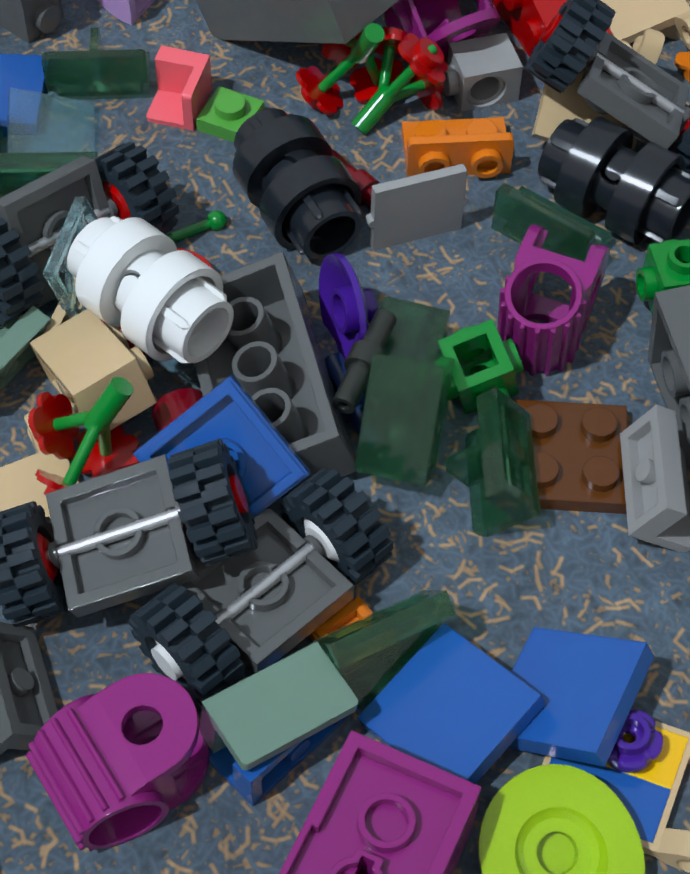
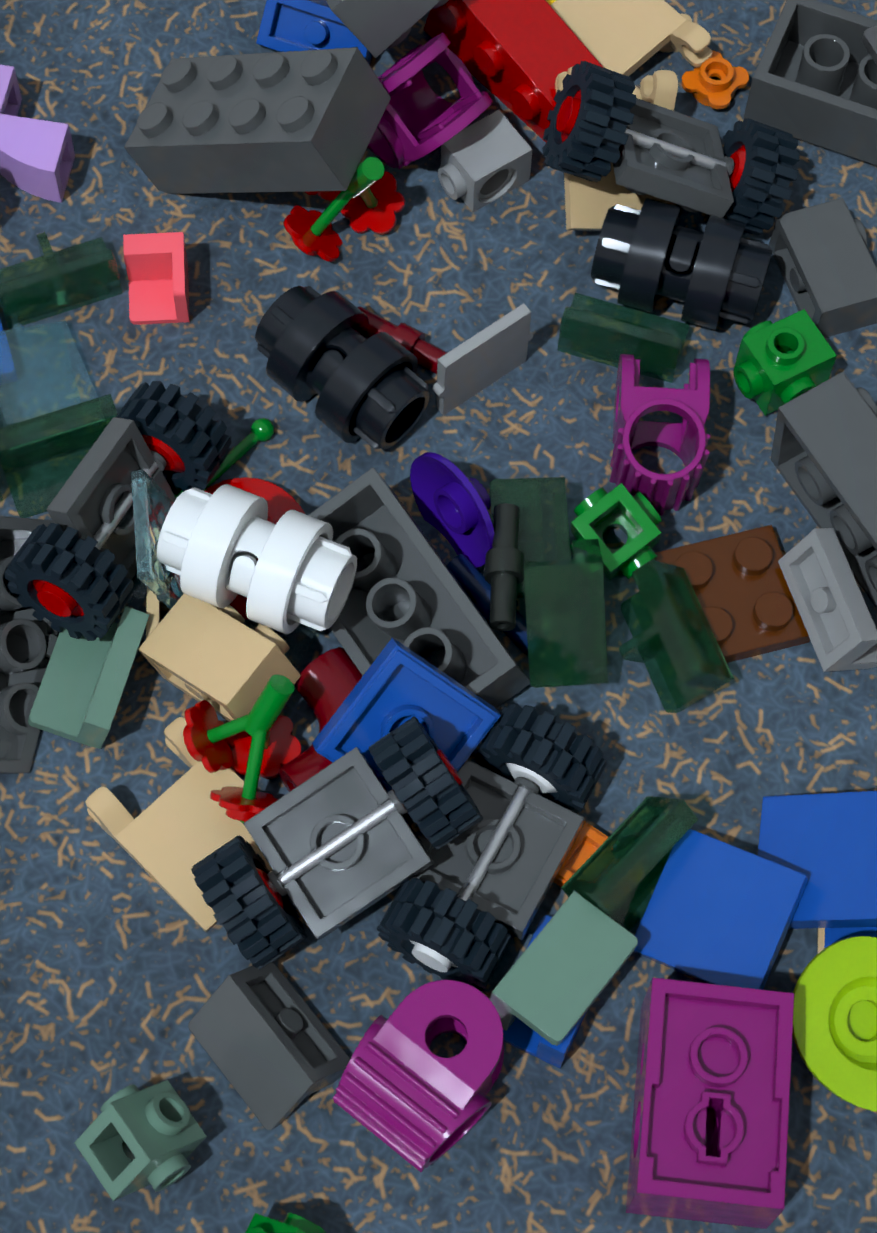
camera: 20 degrees left, 10 degrees up
(227, 112) = (224, 292): bright green plate -> none
(424, 72) = (429, 187): plant -> none
(475, 142) = (487, 263): orange bracket -> none

